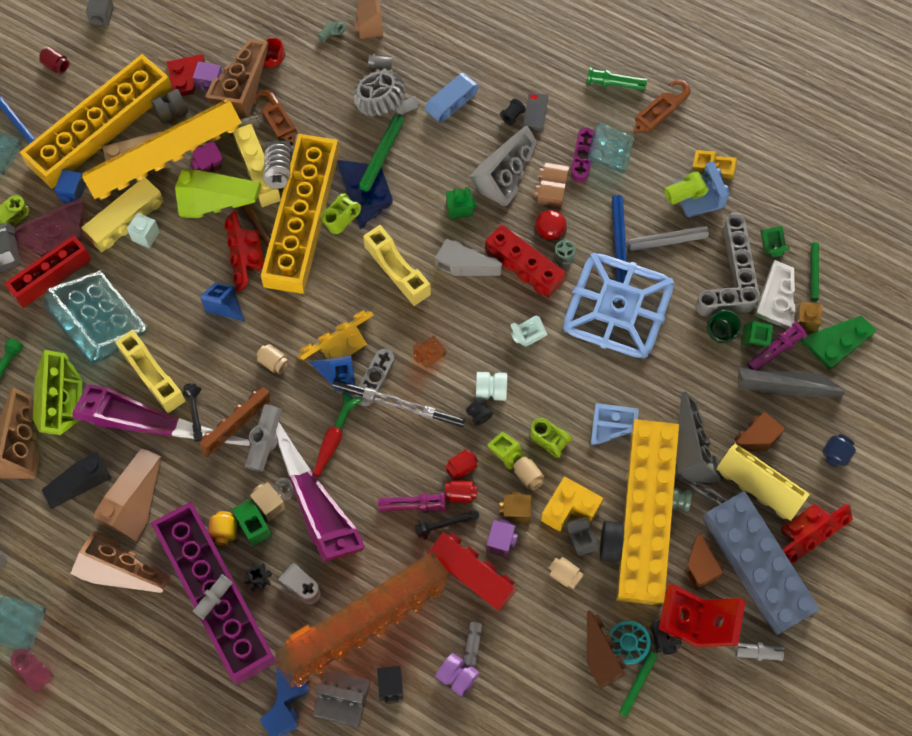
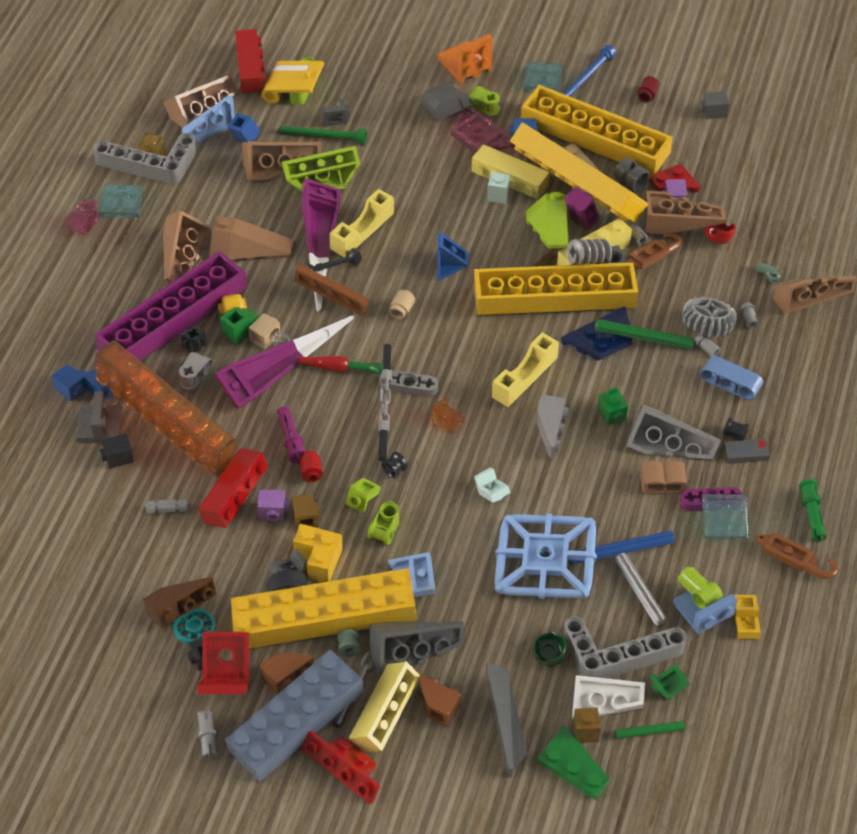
camera: 75 degrees right, 15 degrees down
(48, 271) = (435, 136): red brick -> none
(76, 480) = (254, 206): black slope -> none
(92, 315) = (407, 175): clear light blue slope -> none
(212, 597) = (161, 301): light grey pin -> none
(244, 250) = (509, 258): red bracket -> none
(263, 438) = (322, 313): light grey piece -> none
(335, 368) = (403, 350): blue slope -> none
(340, 213) = (563, 317): lime piece -> none
(341, 342) = (433, 350): yellow bracket -> none
(423, 529) = (266, 447): black piece -> none
(457, 674) = (134, 495): medium lavender wheel -> none
(461, 464) = (337, 461): red brick -> none
(491, 386) = (423, 467): light aqua wheel -> none
(524, 261) = (567, 470): red brick -> none
(528, 473) = (343, 515): tan brick -> none
(551, 225) = (618, 486): red hair -> none
(565, 572) = (250, 561): tan brick -> none
(568, 249) = (594, 498): sand green wheel -> none
(638, 683) = (155, 641): green bar -> none
(757, 334) = (550, 678): green panel -> none
(785, 342) = (550, 706): magenta pin -> none
(839, 450) = (440, 775): dark blue head -> none

